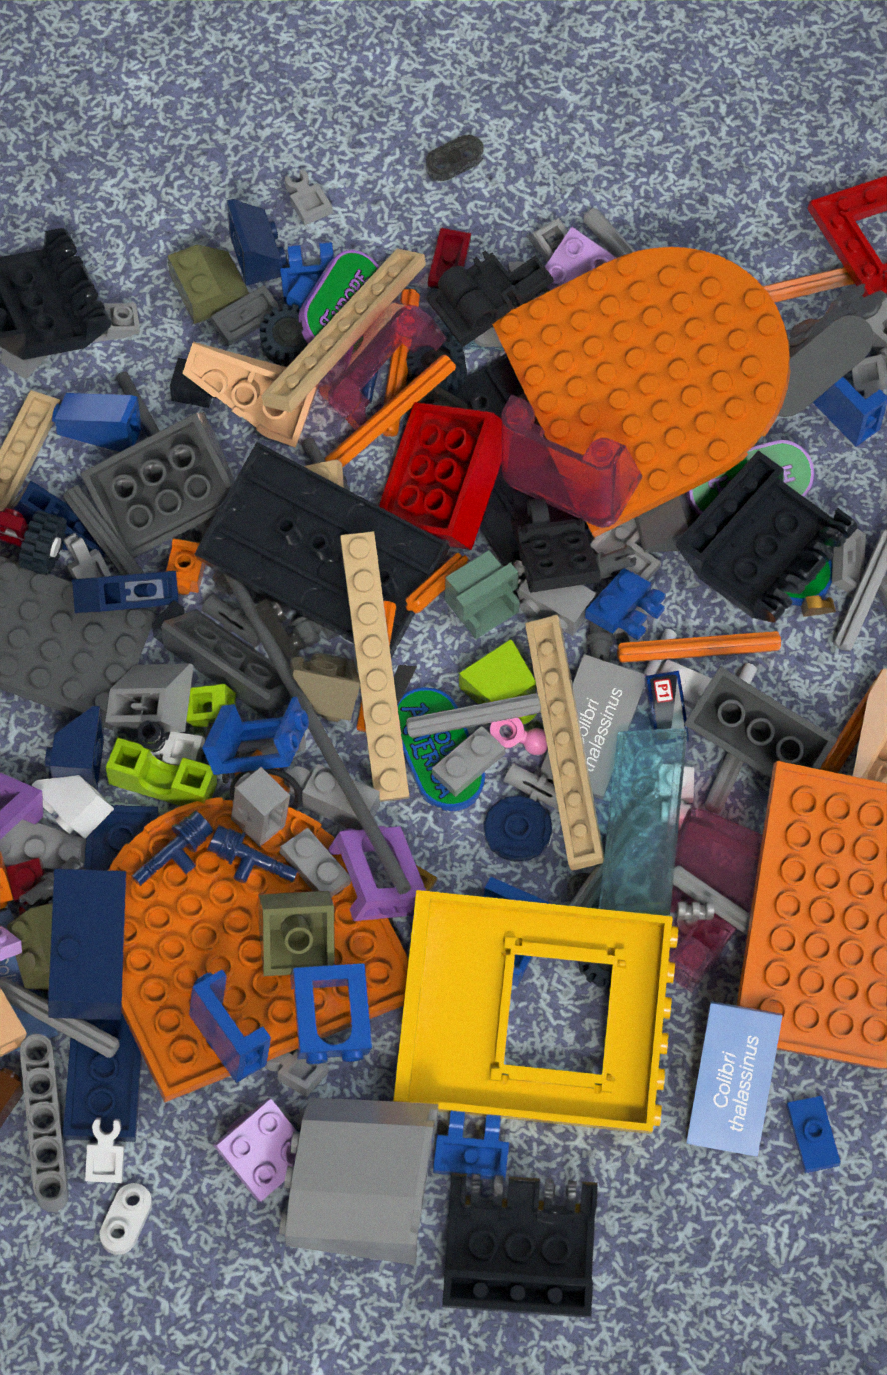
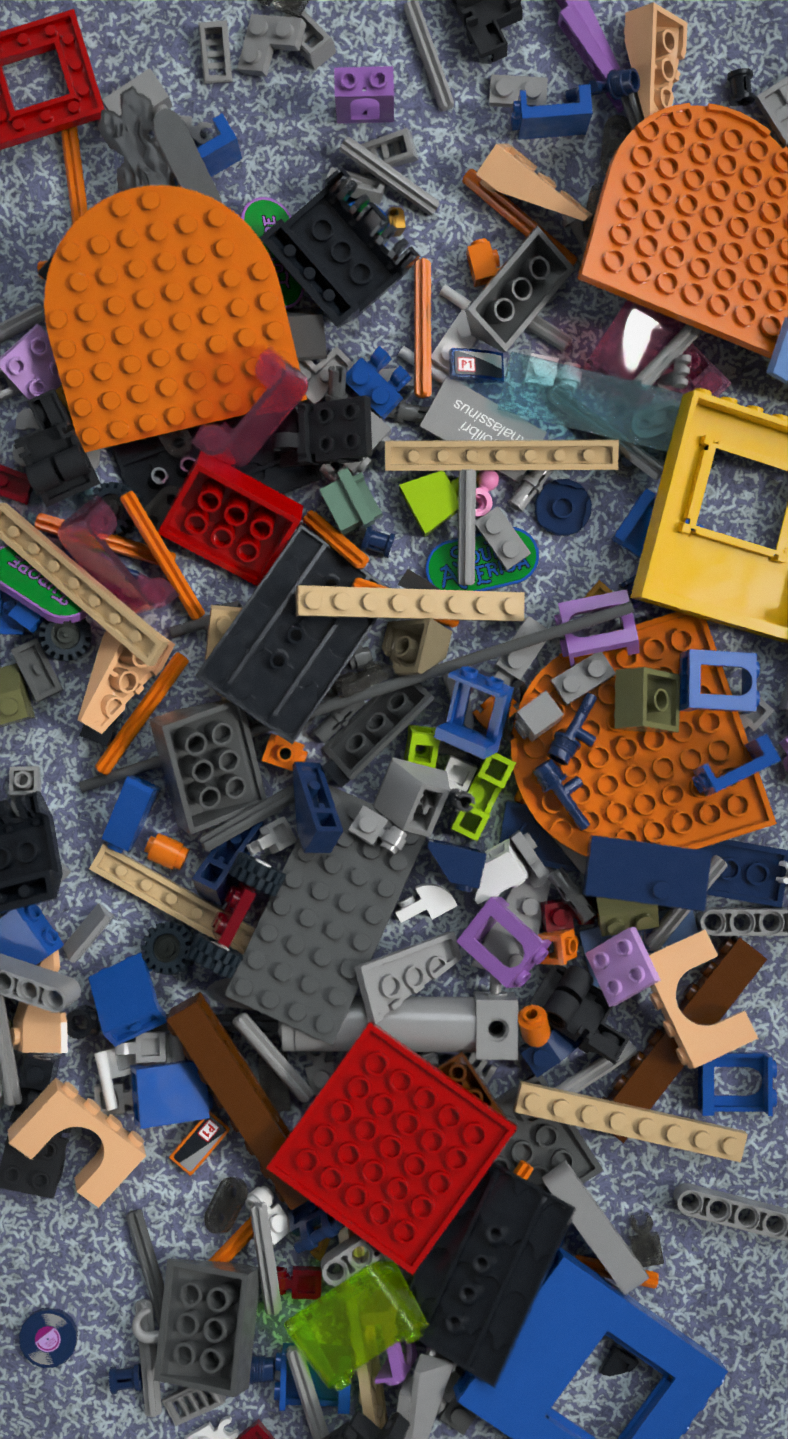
camera: 80 degrees left, 25 degrees up
(30, 735) = (432, 897): none -> white brick
(58, 464) = (166, 851): none -> orange brick
(103, 825) = (525, 846): none -> light grey plate
(106, 662) = (371, 826): none -> light grey plate
(221, 425) = (141, 713): none -> orange axle
(443, 633) = (377, 541): none -> dark blue bush
(793, 695) = (482, 261): none -> orange brick

